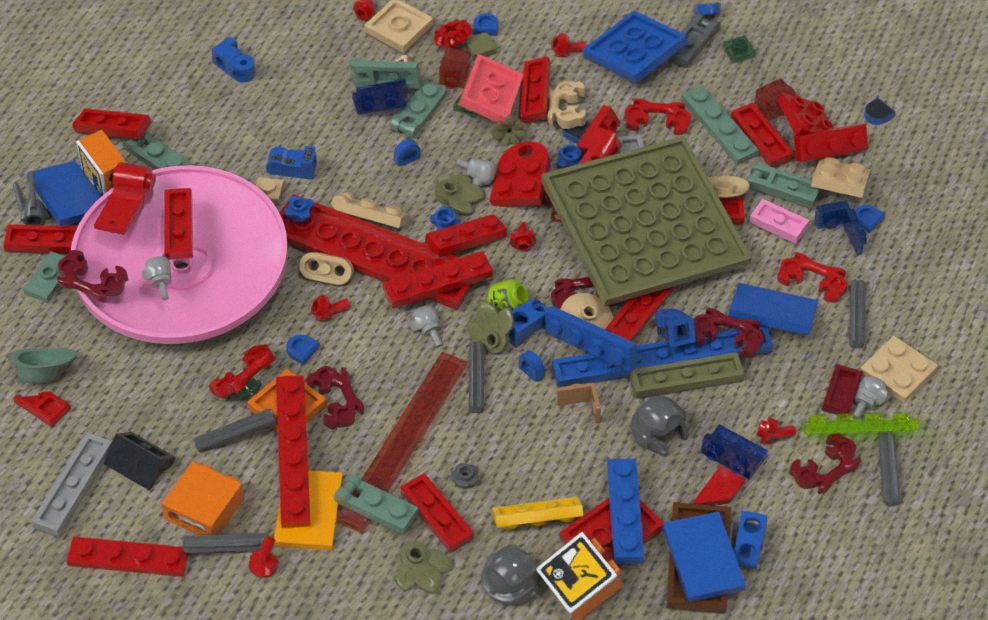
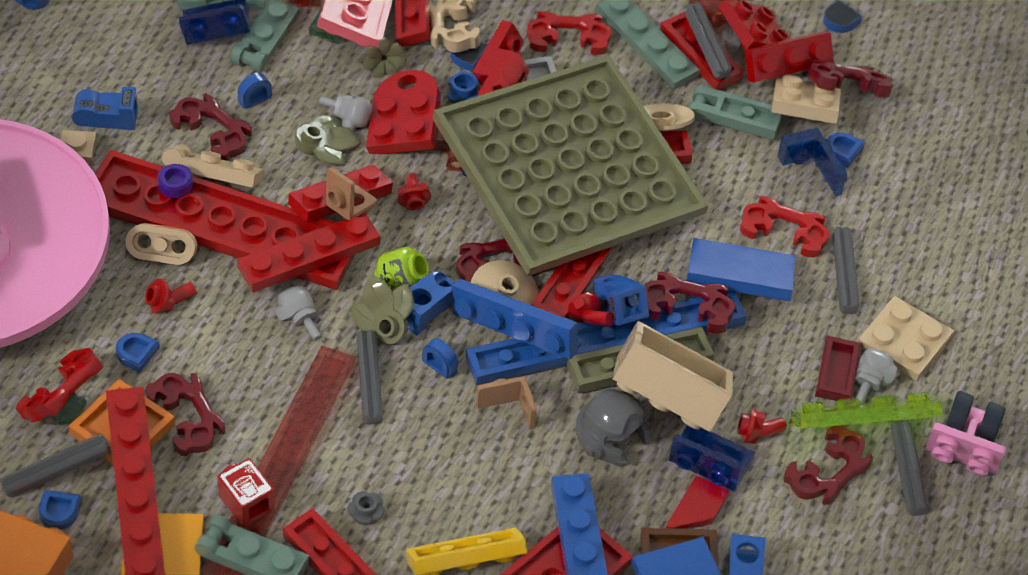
camera: 10 degrees left, 0 degrees up
(236, 463) = (59, 509): none -> blue tile
(298, 208) = (119, 168): blue plate -> none
(340, 220) = (175, 180): none -> dark purple tile
(358, 166) = (193, 109): none -> dark red helmet
(374, 458) = (246, 492): none -> red brick
(444, 214) = (309, 167): blue plate -> none
(464, 237) = (341, 194): none -> medium nougat bracket
(648, 333) = (587, 309): none -> red plate
(708, 389) = (673, 377): none -> tan piece
(766, 127) = (708, 40): none -> dark grey axle
(779, 221) = (735, 157): bright pink plate -> none
(861, 158) = (831, 75): none -> dark red helmet
(930, 449) = (979, 451): none -> bright pink plate

